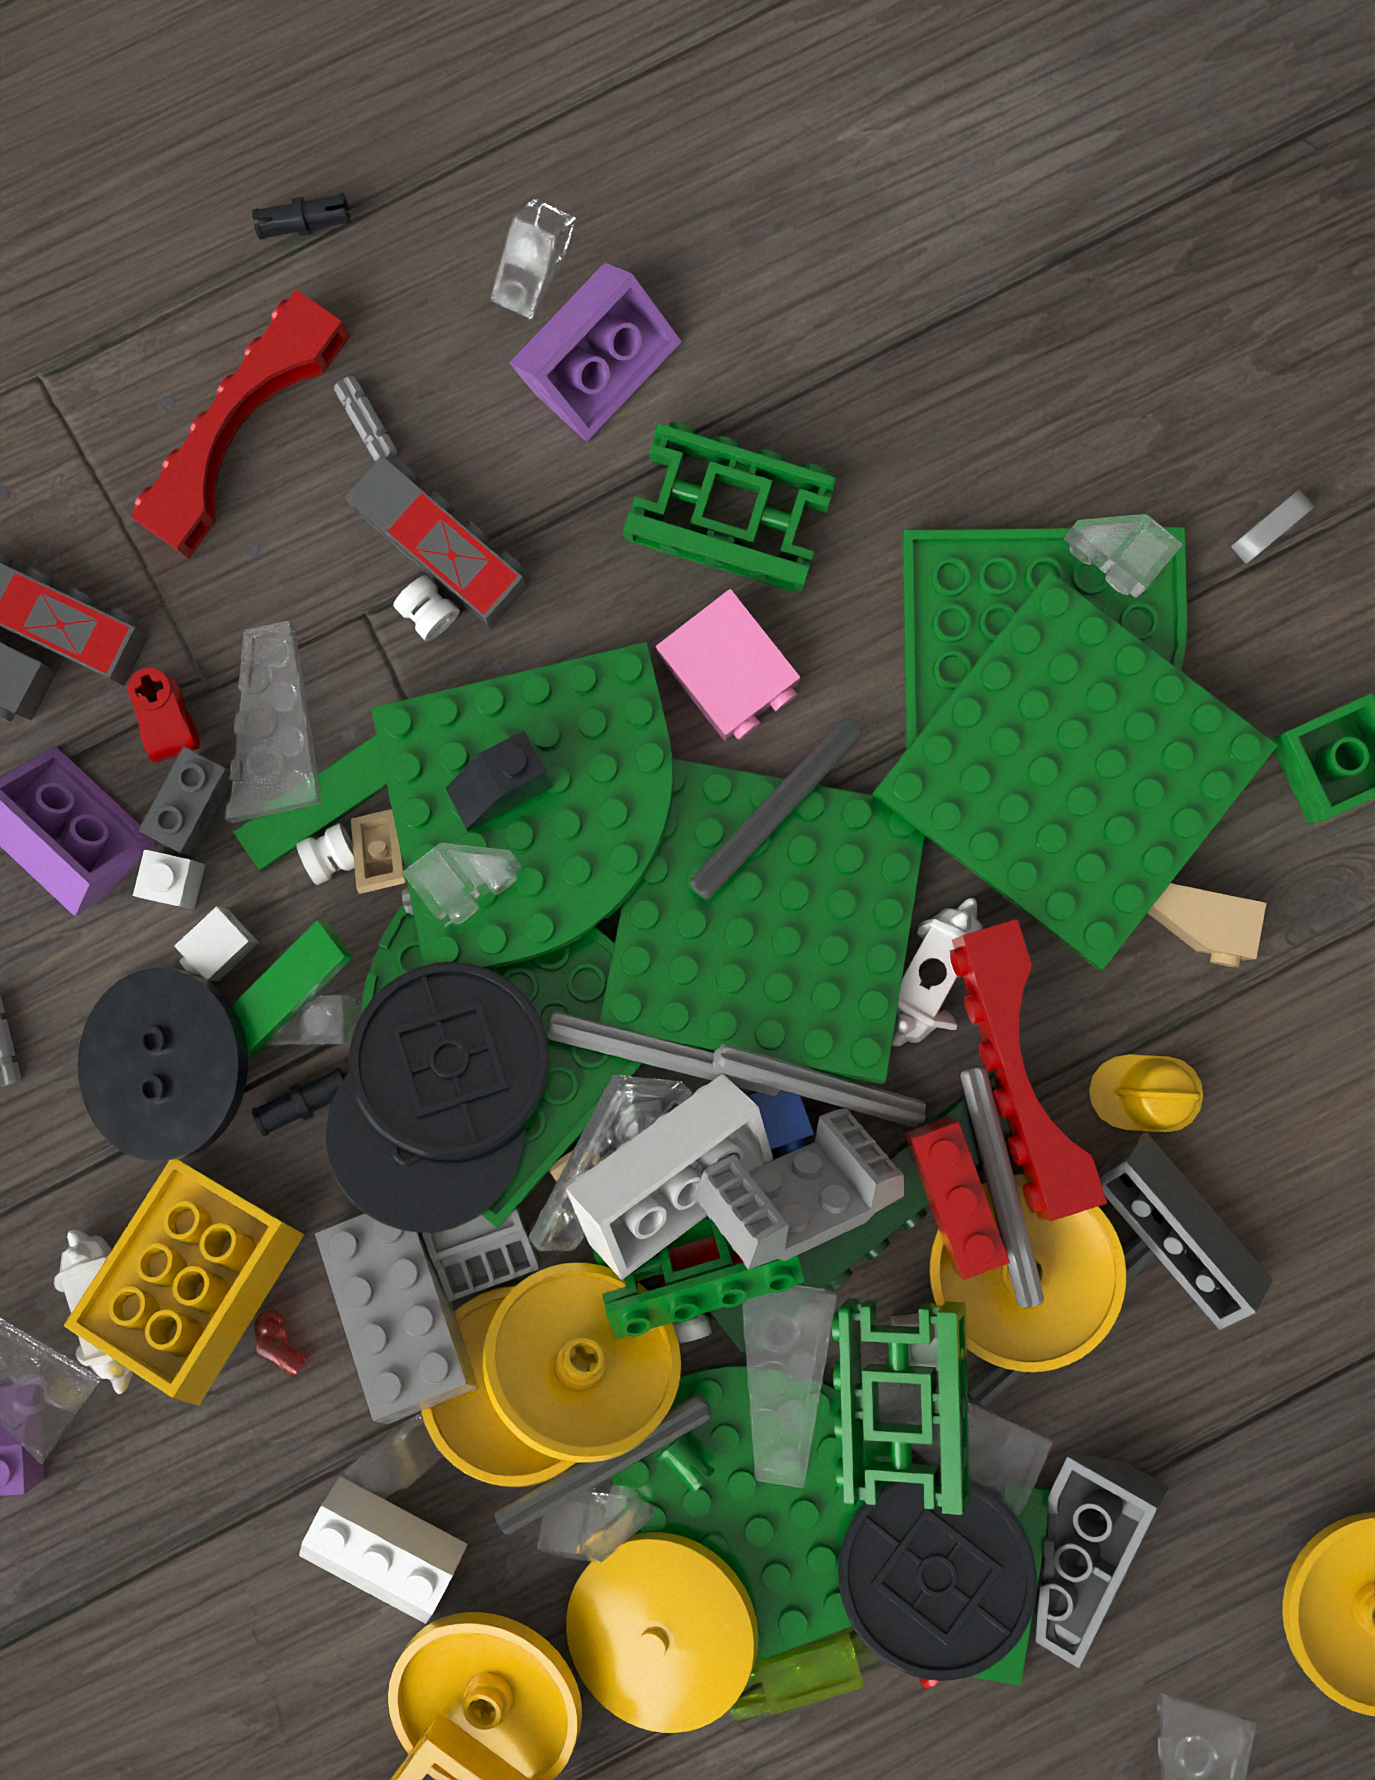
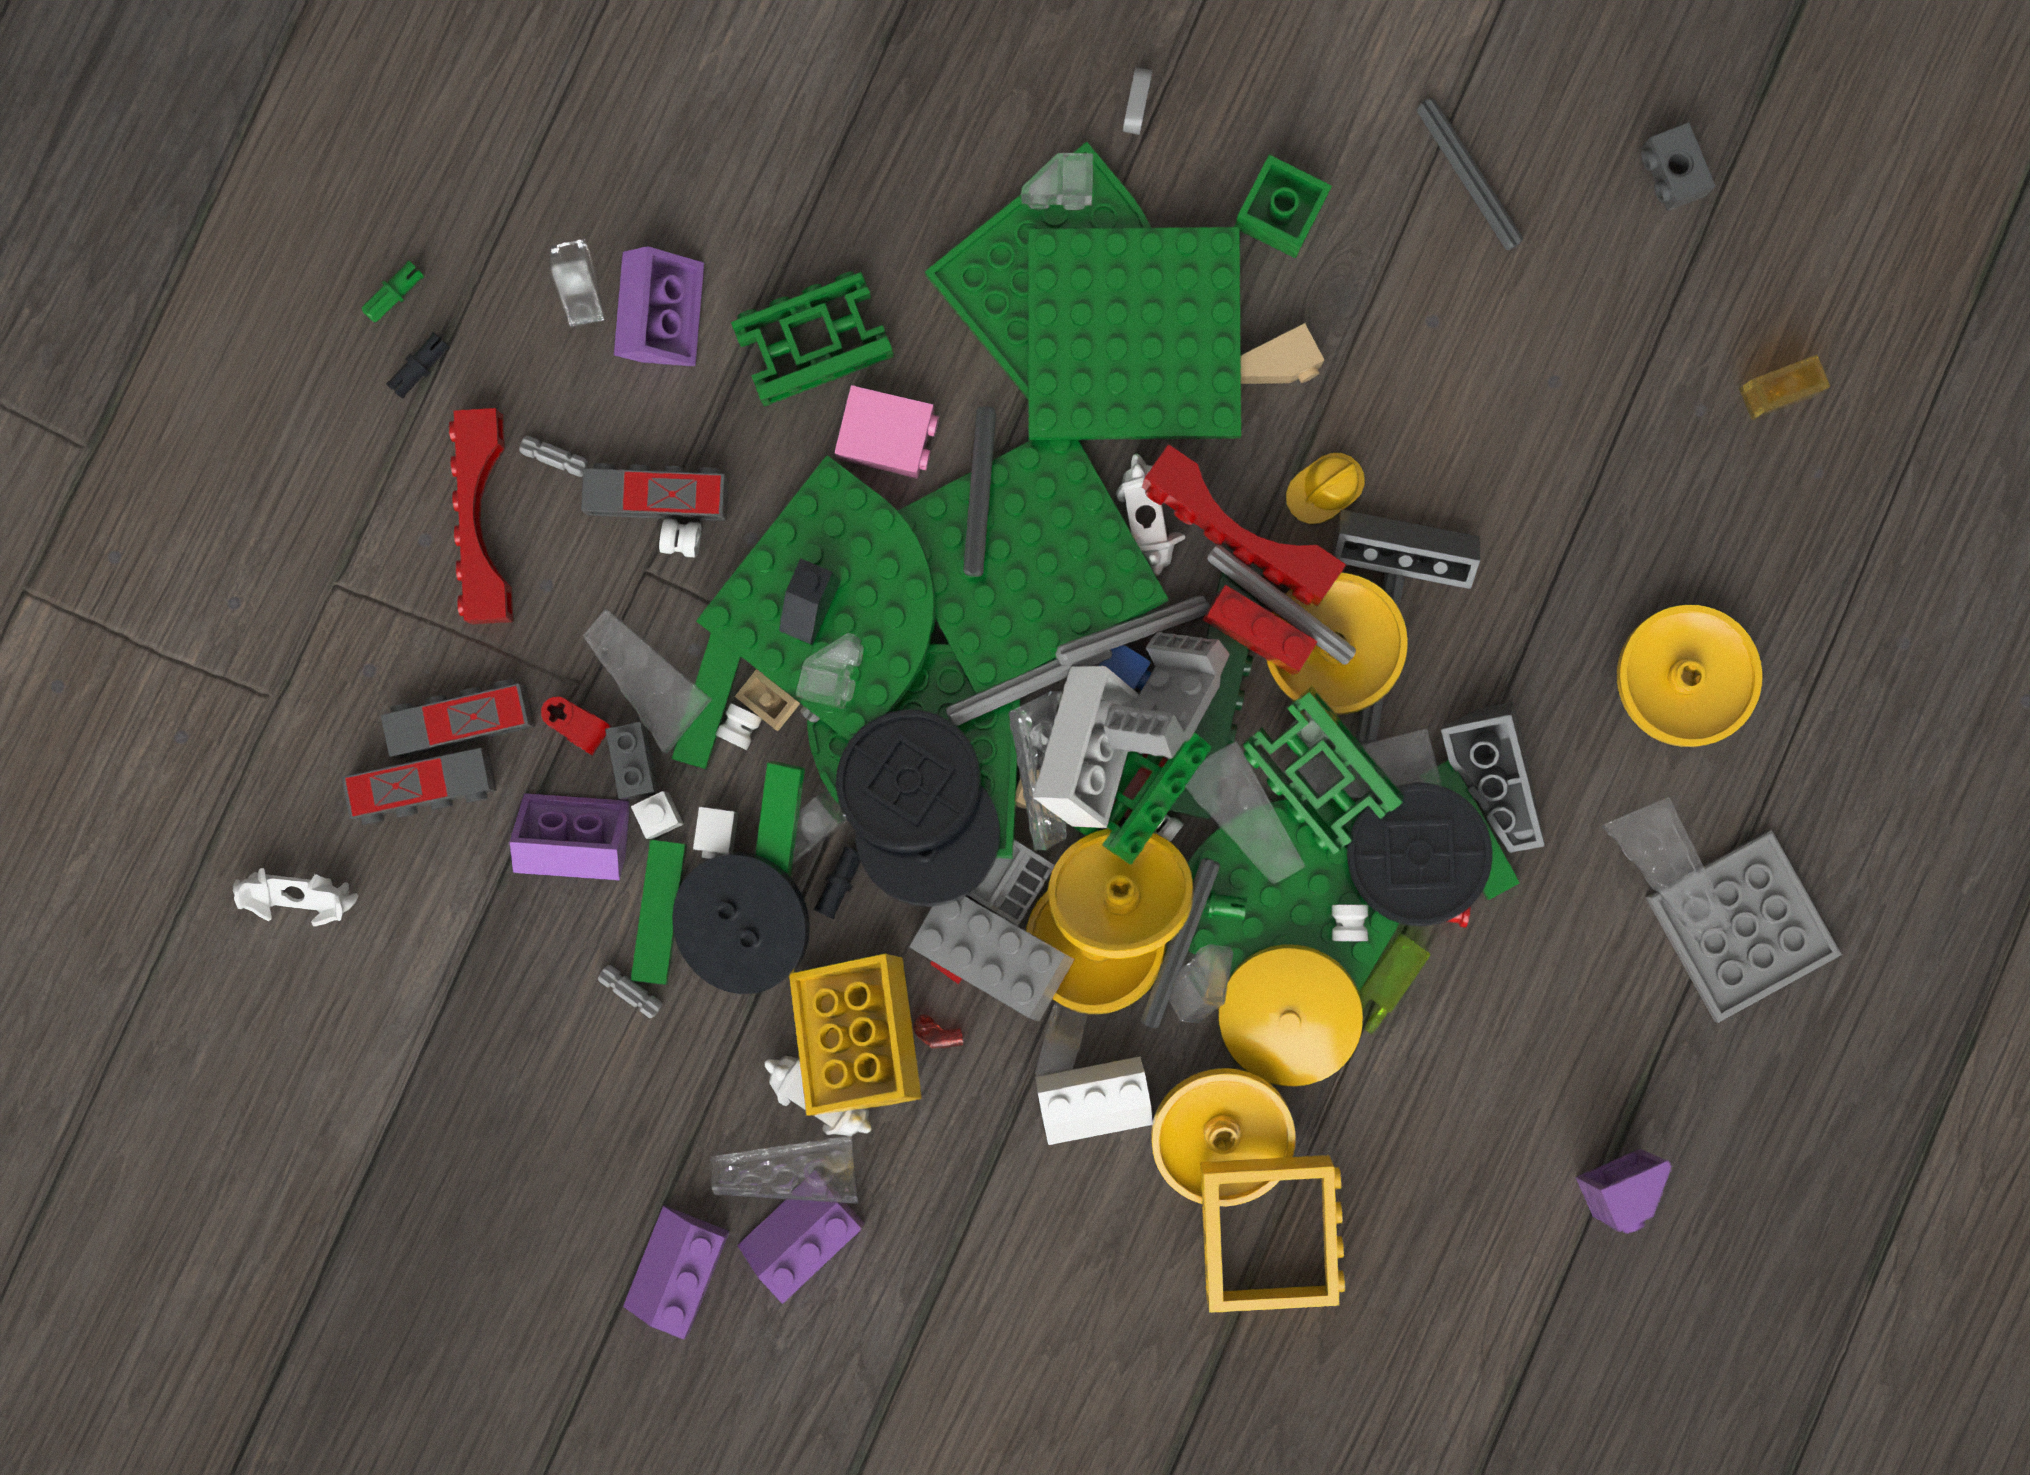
camera: 40 degrees left, 0 degrees up
(73, 996) = (655, 923): none -> green tile
(335, 120) = (391, 292): none -> green axle
(803, 1587) = (1349, 923): none -> white wheel

